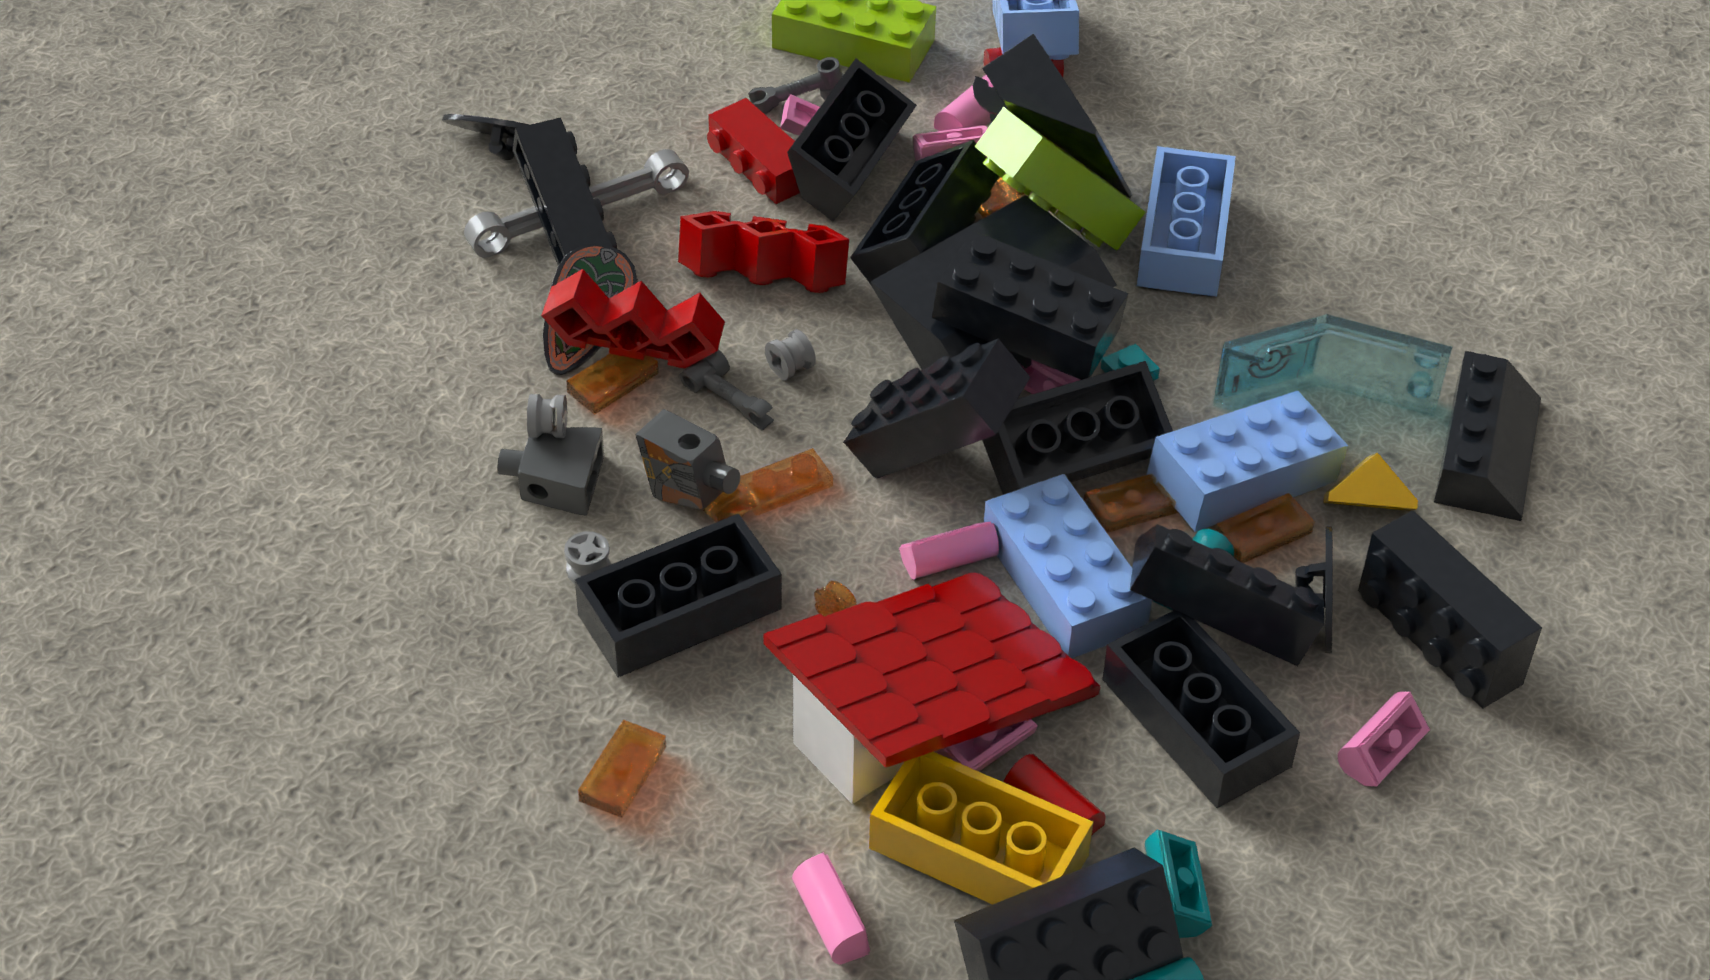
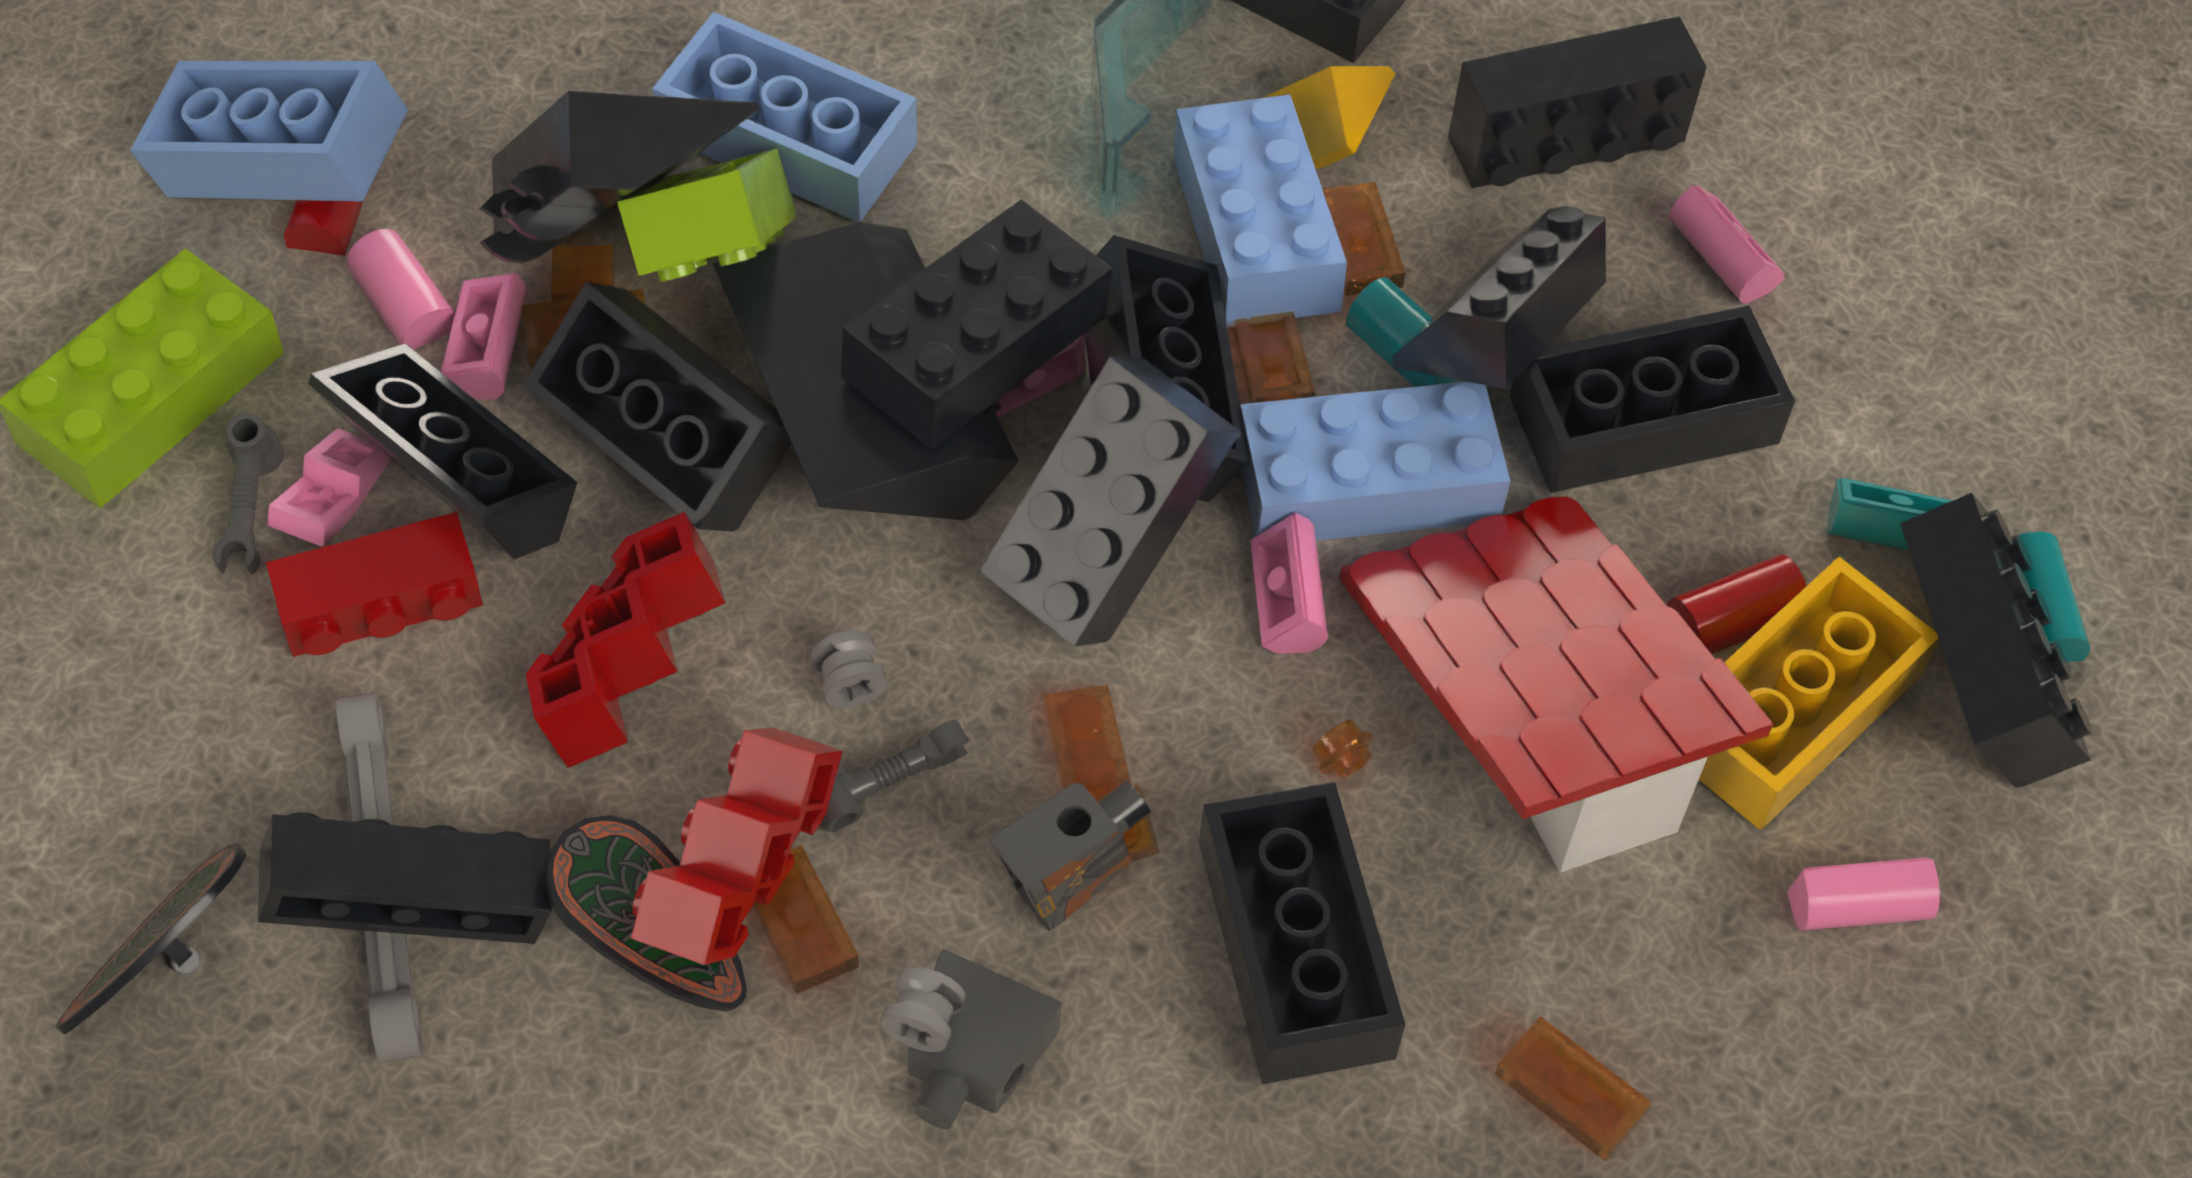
camera: 75 degrees left, 10 degrees up
(581, 549) = (1172, 1025): light grey wheel -> none
(1304, 576) = (1485, 195): black shield -> none

